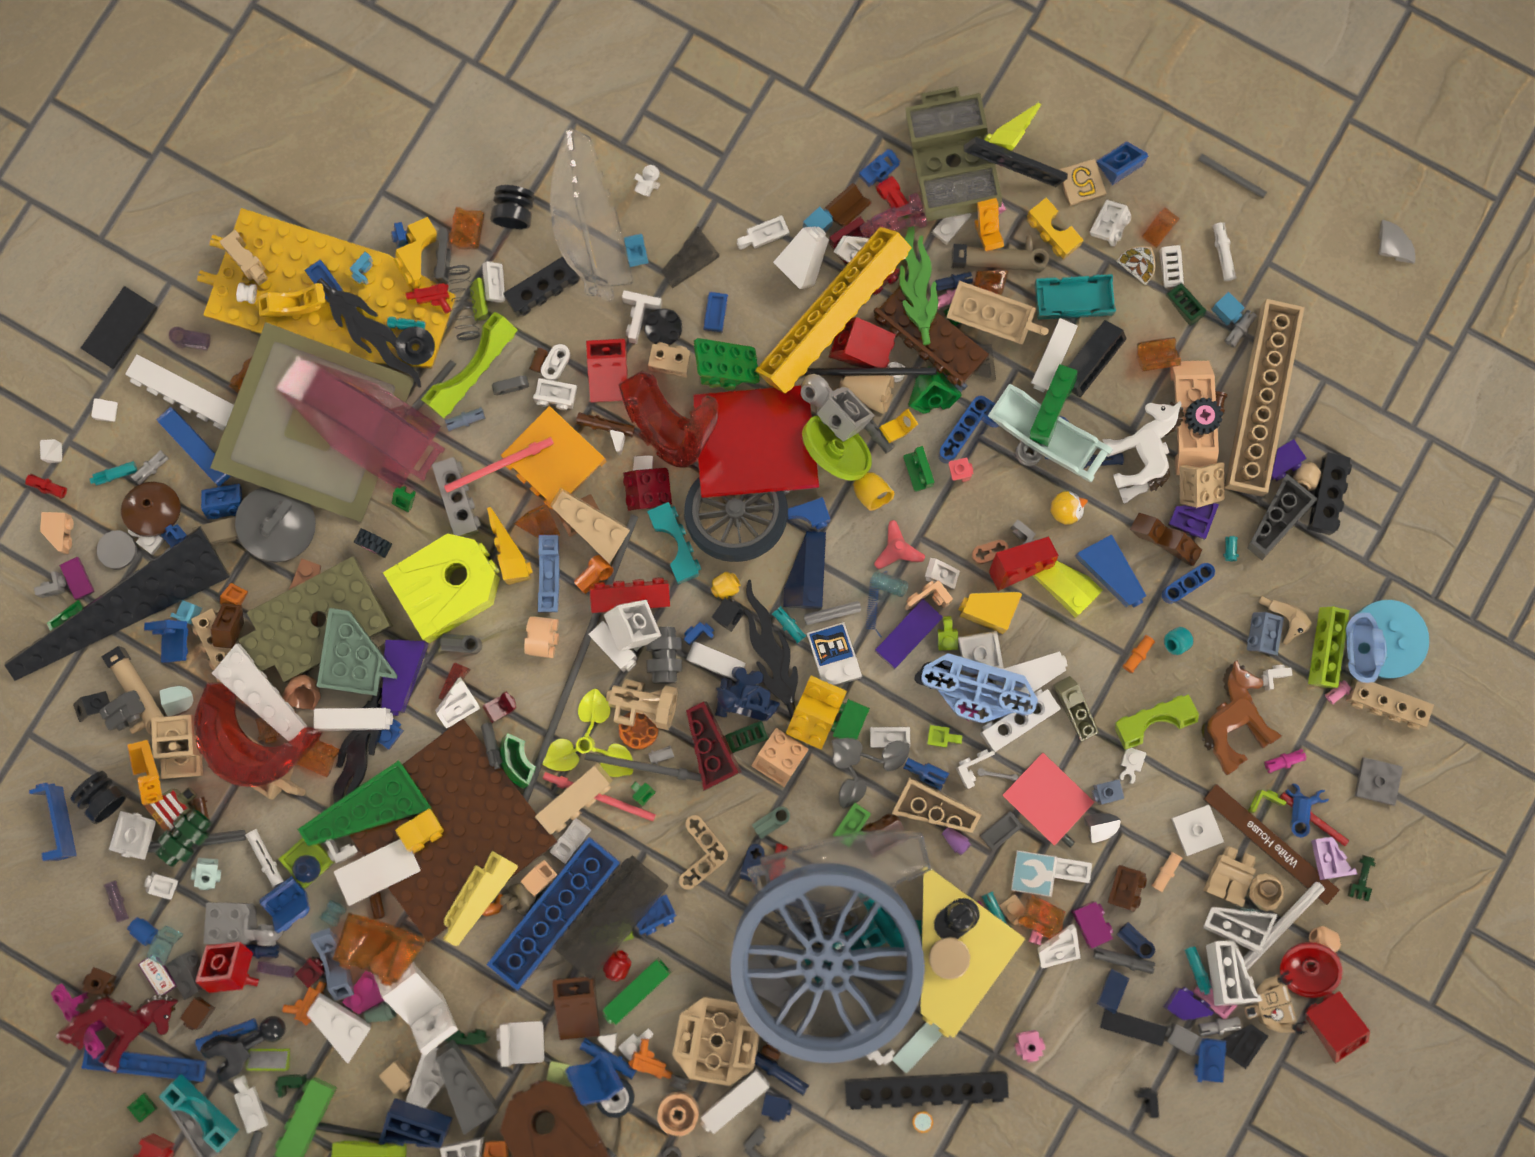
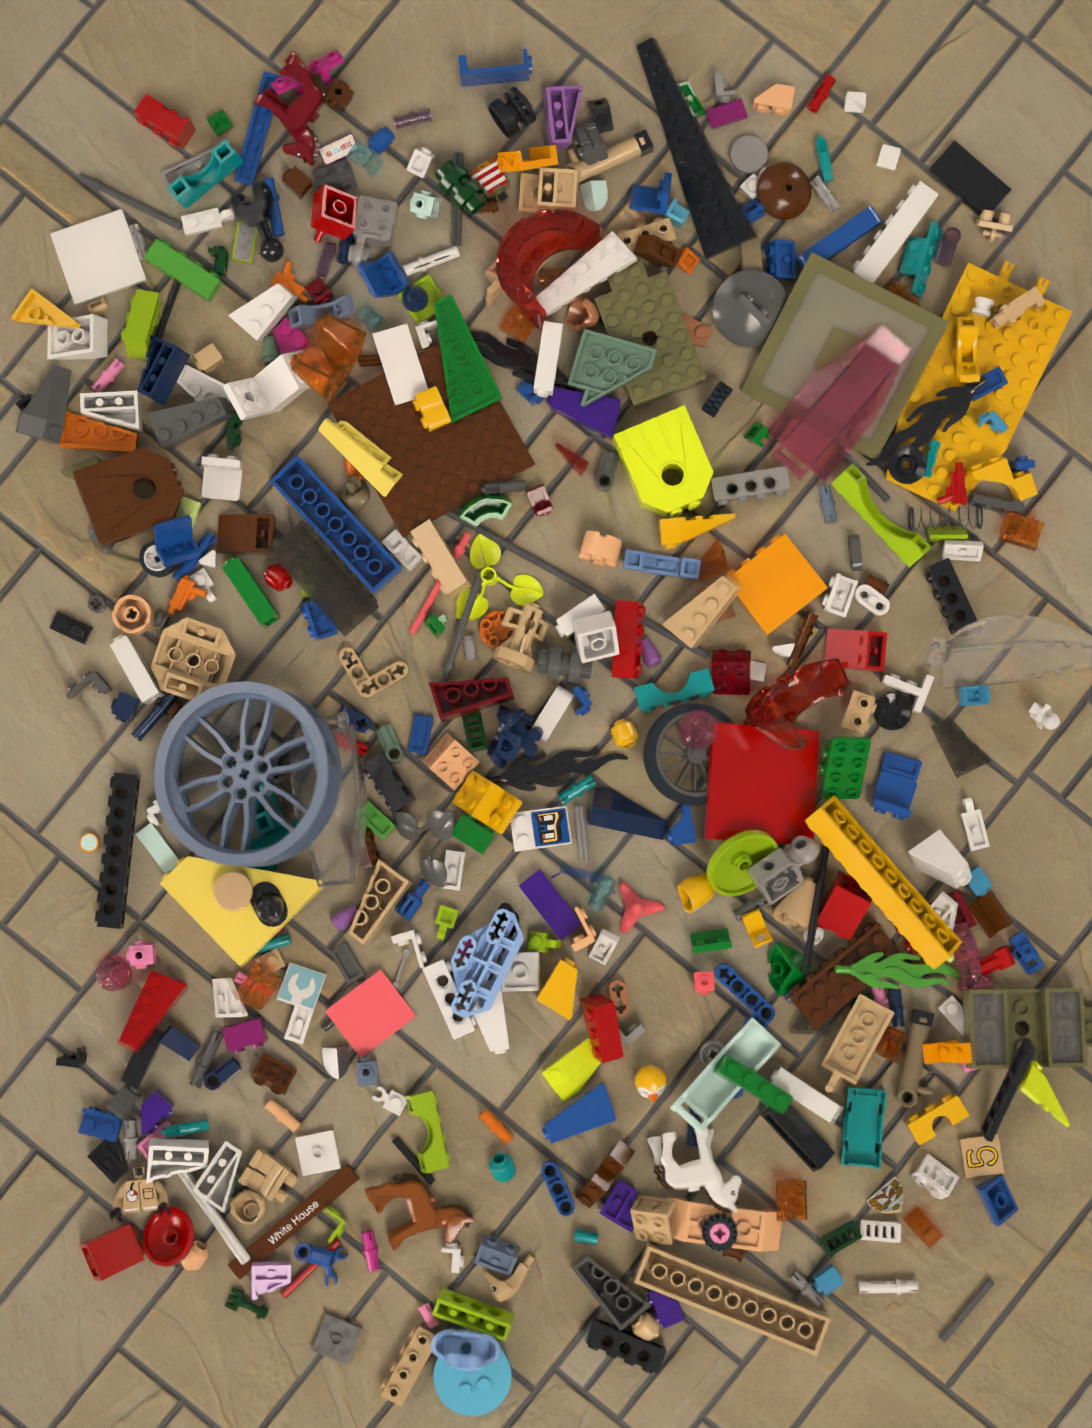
camera: 100 degrees right, 5 degrees up
(94, 747) = (560, 113): none -> medium lavender wedge
(132, 835) = (471, 140): white plate -> none
(158, 305) = (986, 221): none -> tan hips
(203, 365) = (919, 257): none -> teal bracket
(457, 704) = (548, 459): white wing -> none
(512, 207) = (1040, 580): black wheel -> none
(533, 448) = (786, 566): coral bar -> none
(539, 878) = (370, 515): light nougat slope -> none
(598, 570) = (657, 611): orange piece -> none
(643, 570) = (650, 654): none -> medium lavender cone
(711, 508) = (698, 729): none -> clear pink dish
(728, 614) = (596, 732): black brick -> none
(746, 314) = (893, 795): none -> blue bracket
(757, 792) = (420, 734): none -> blue tile
(812, 816) = (388, 782): none -> black wedge
(1053, 1072) = (114, 973): none -> clear pink hair
(1076, 708) = (453, 1055): olive slope -> none
(1078, 1024) = (152, 1006): none -> red wedge
(1186, 733) = (412, 1159): none -> black bar

